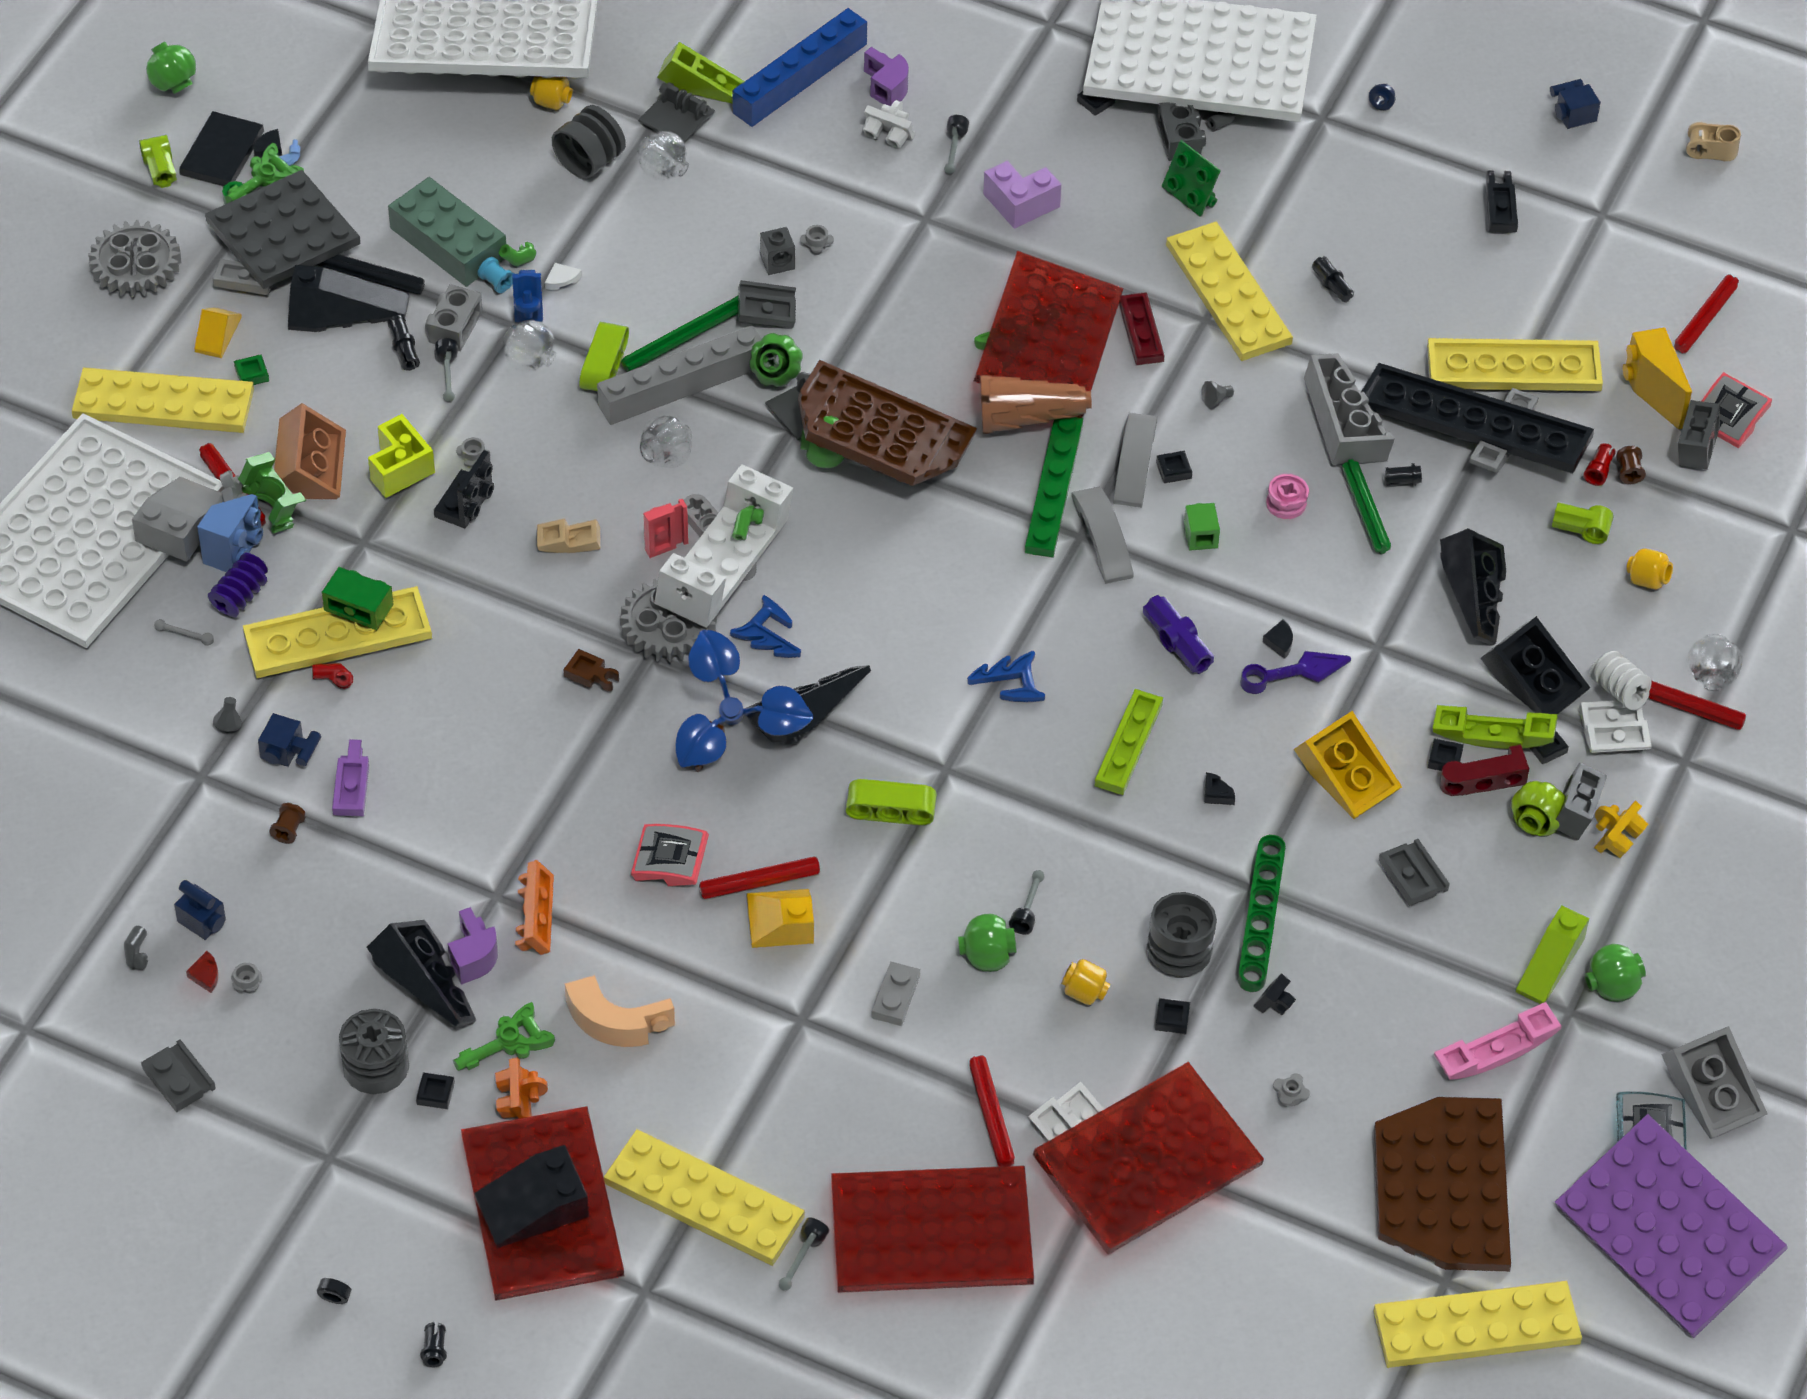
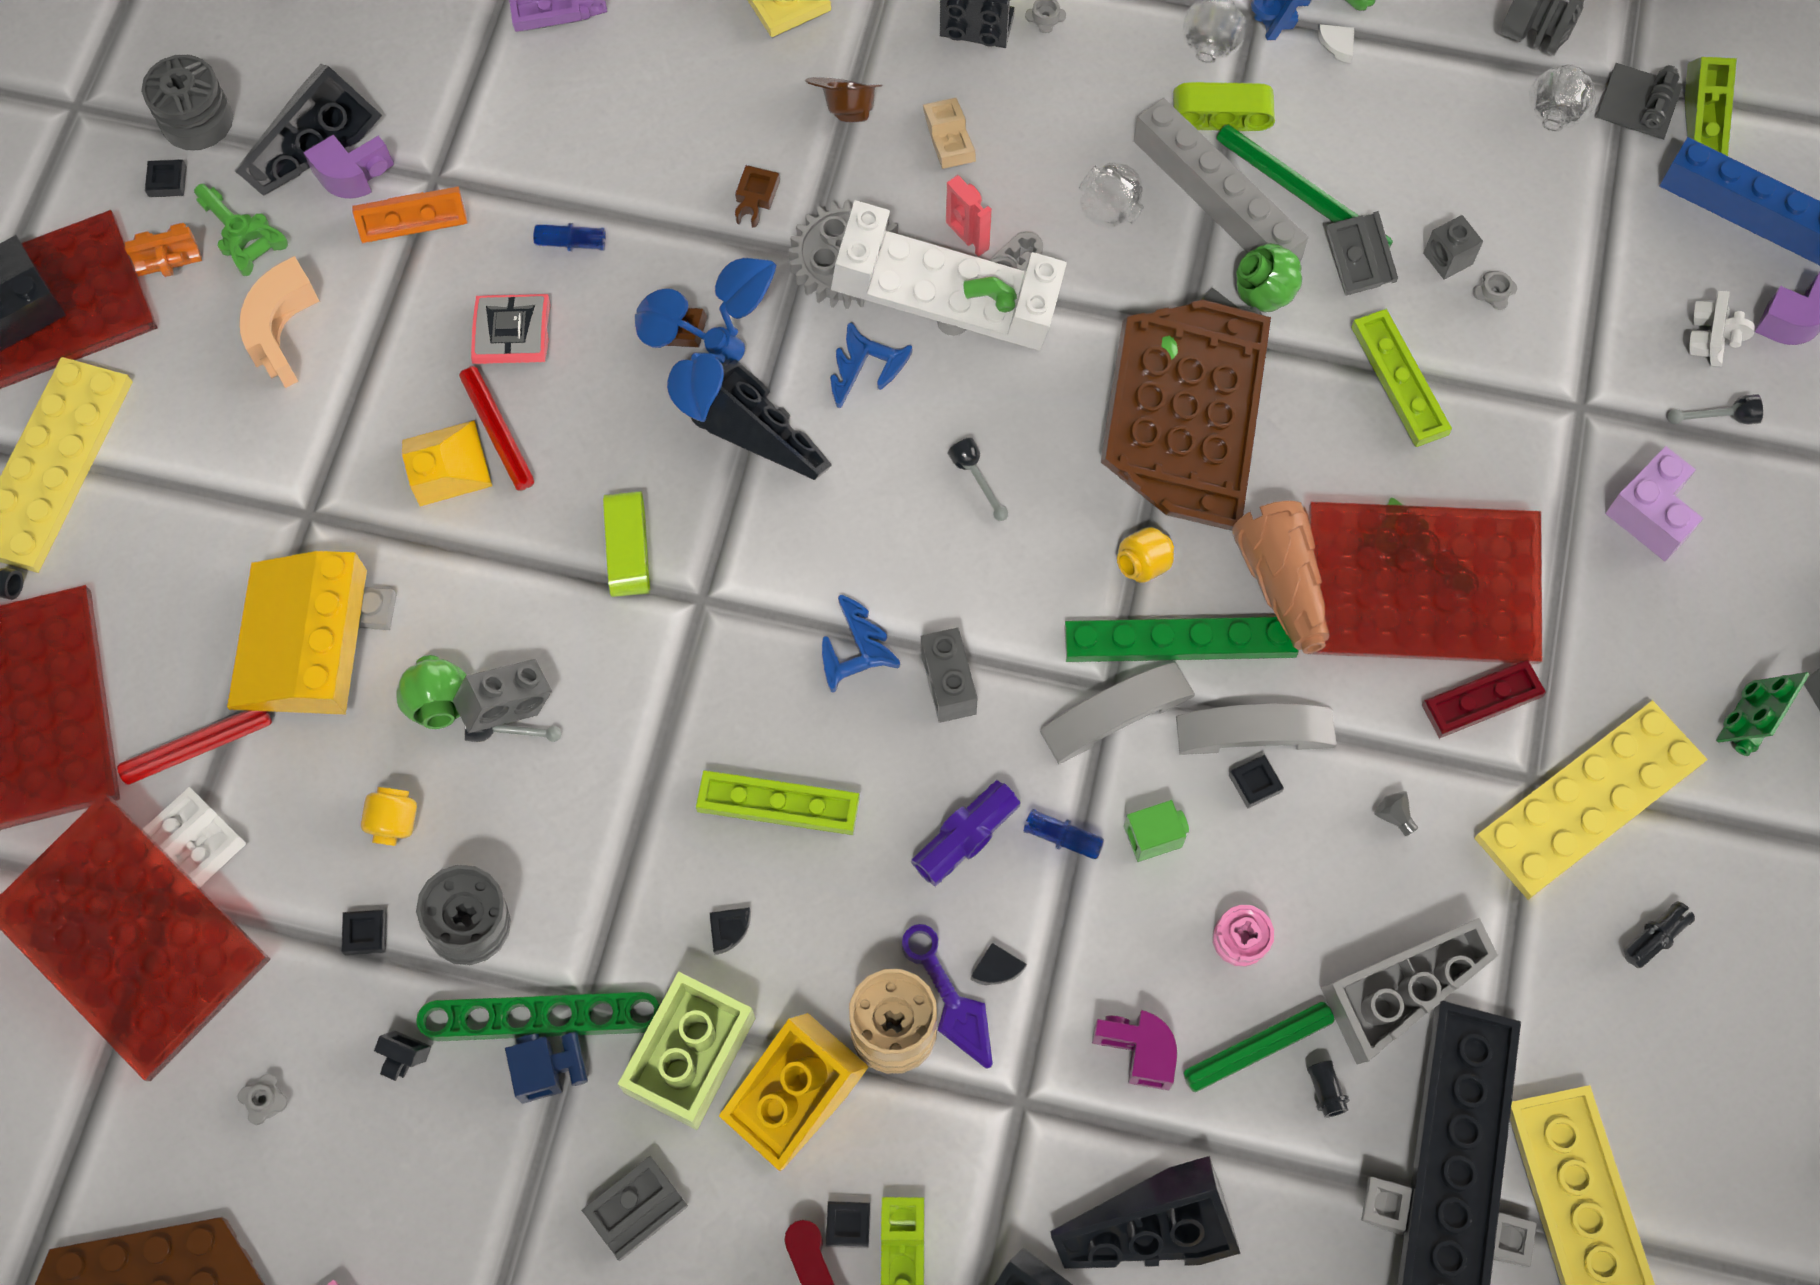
camera: 80 degrees right, 15 degrees up
(516, 592) = (845, 98): none -> reddish brown piece
(592, 801) = (569, 236): none -> clear blue axle
(871, 578) = (966, 456): none -> hinge
(876, 309) = (1401, 378): none -> lime plate
(922, 1014) = (299, 634): none -> yellow slope
(985, 486) = (1145, 555): none -> yellow head
(1009, 887) = (501, 695): none -> dark grey brick
(1054, 619) = (948, 675): none -> dark grey brick
(1191, 580) = (1064, 834): none -> clear blue axle
(1302, 911) = (537, 1069): none -> dark blue brick
(1310, 816) = (687, 1050): none -> yellowish green brick
(1313, 691) = (898, 999): none -> tan wheel
(1358, 561) = (1152, 1047): none -> magenta brick

